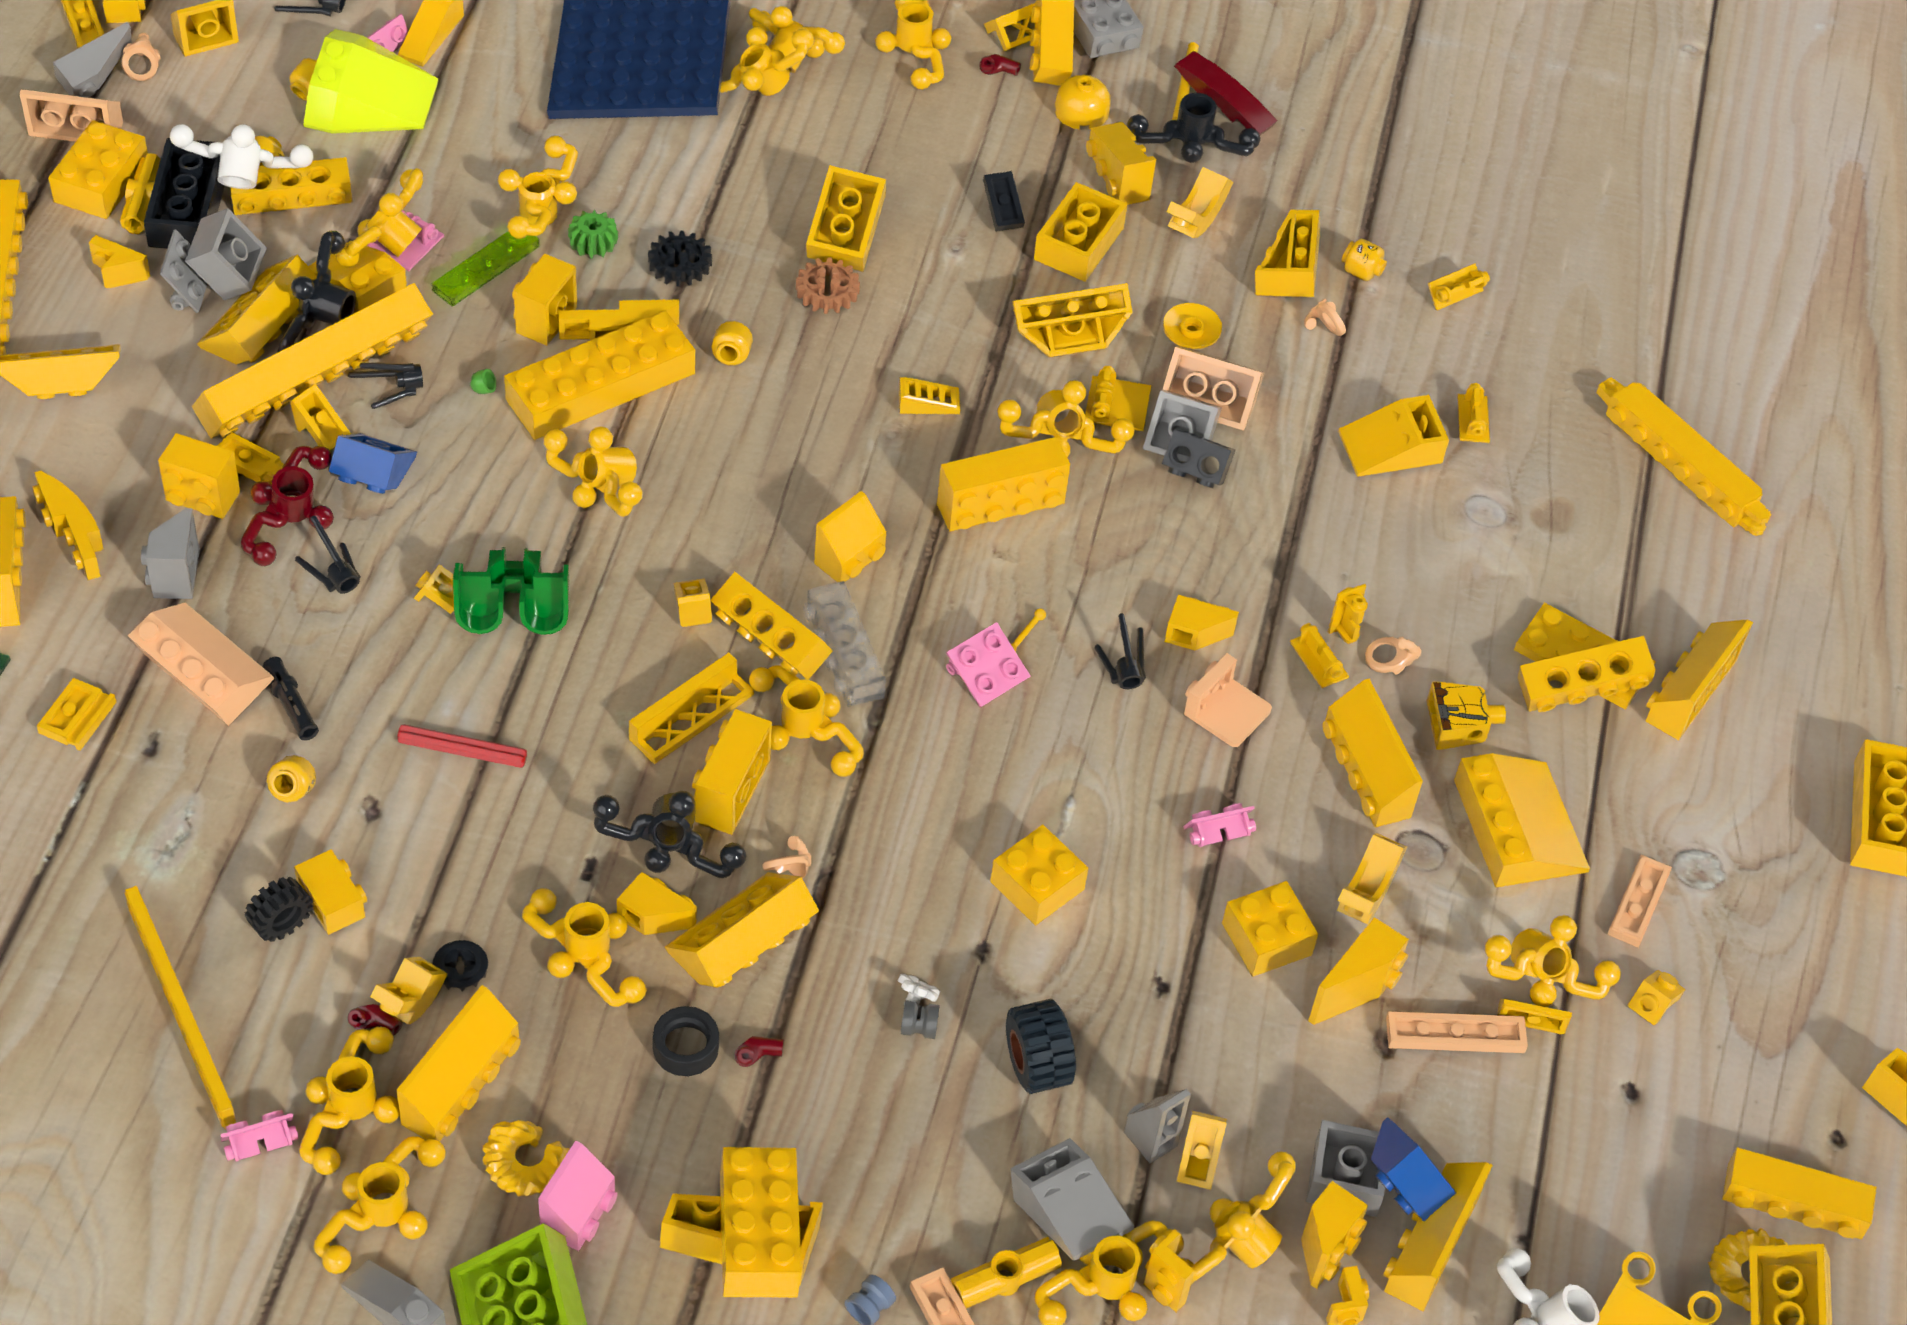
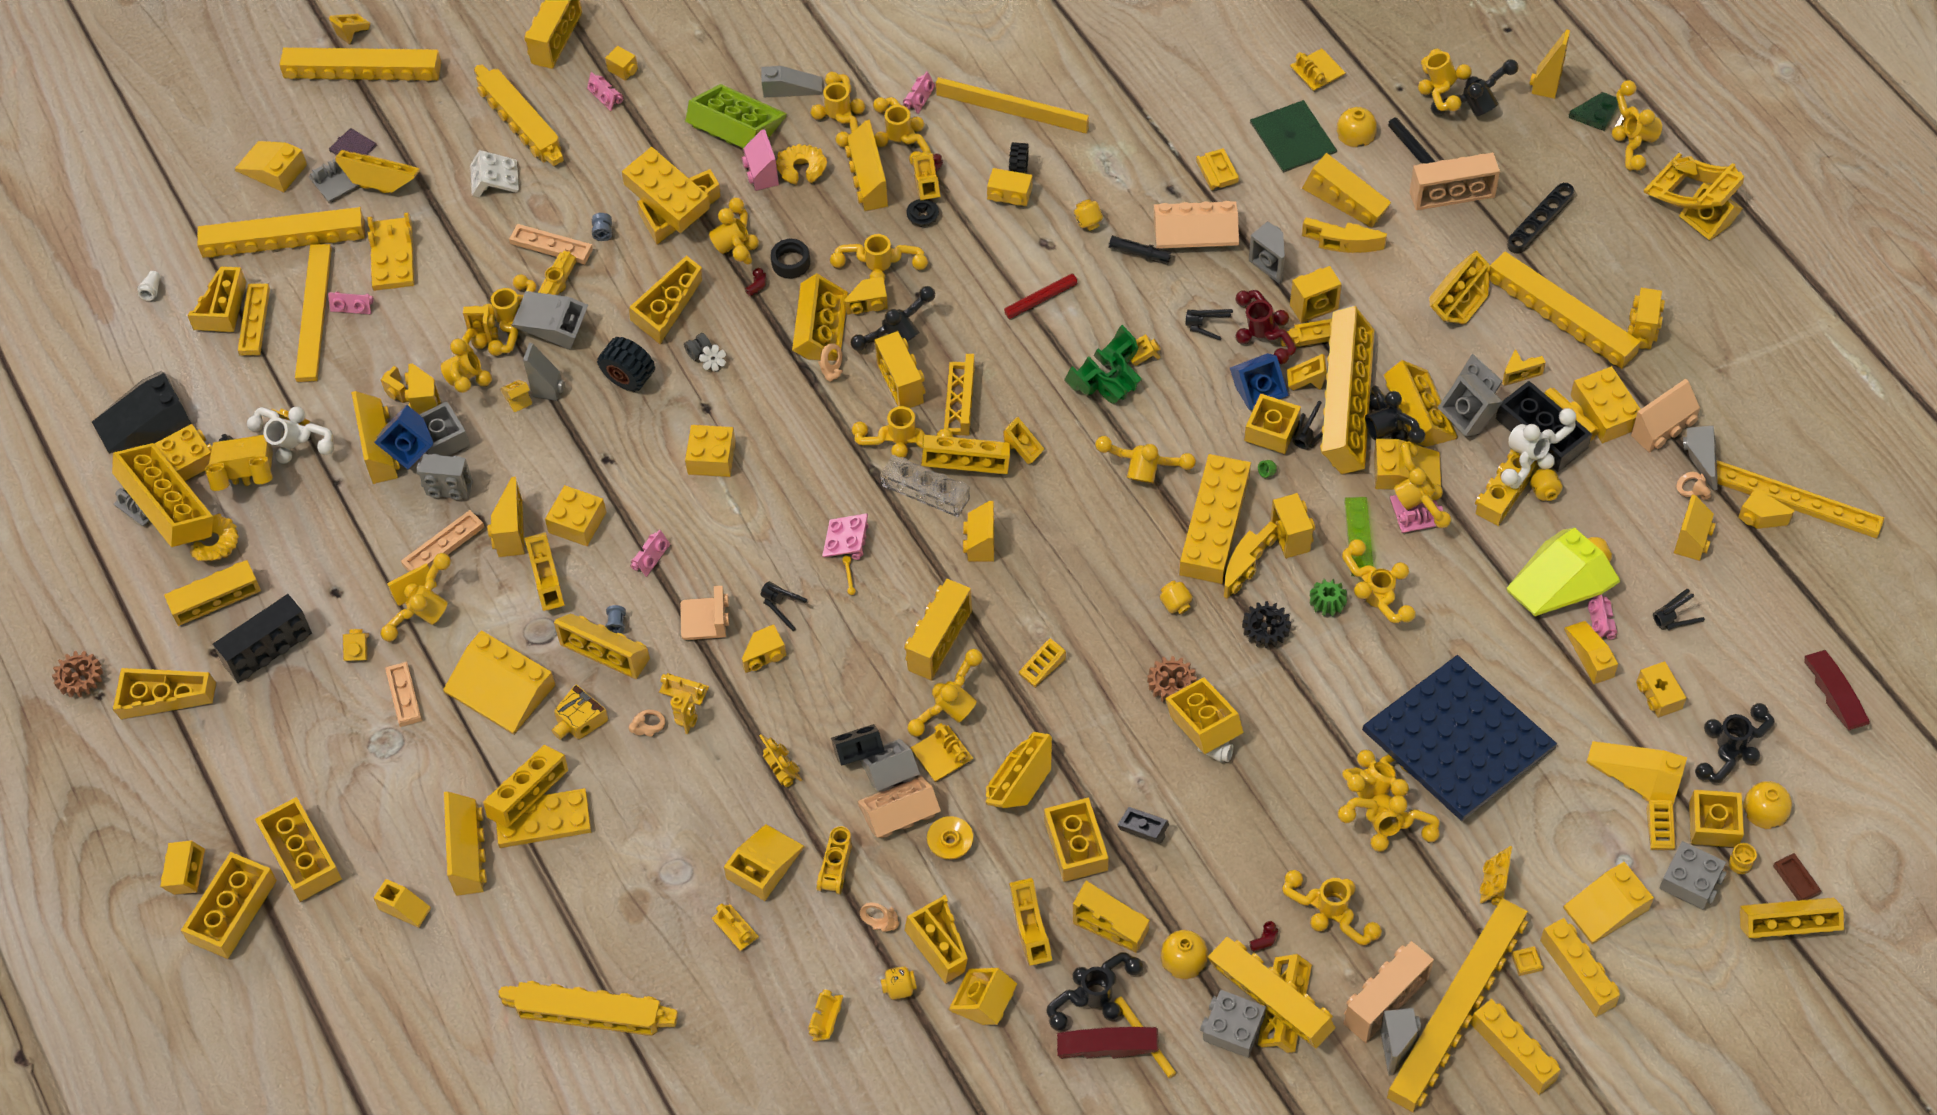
camera: 145 degrees right, 5 degrees up
(425, 402) = (1272, 423): none -> yellow brick
(723, 1116) = (734, 232): none -> yellow wheel
(896, 1108) = (666, 299): none -> yellow wedge
(1290, 504) = (779, 762): none -> yellow hinge
(1297, 190) = (983, 995): none -> yellow slope
(1322, 390) = (832, 874): none -> yellow piece
(1329, 781) = (615, 618): none -> sand blue bush
(1392, 1089) = (445, 476): none -> light grey brick
(1776, 1070) = (262, 638): none -> black brick
(1811, 677) = (401, 903): none -> yellow slope

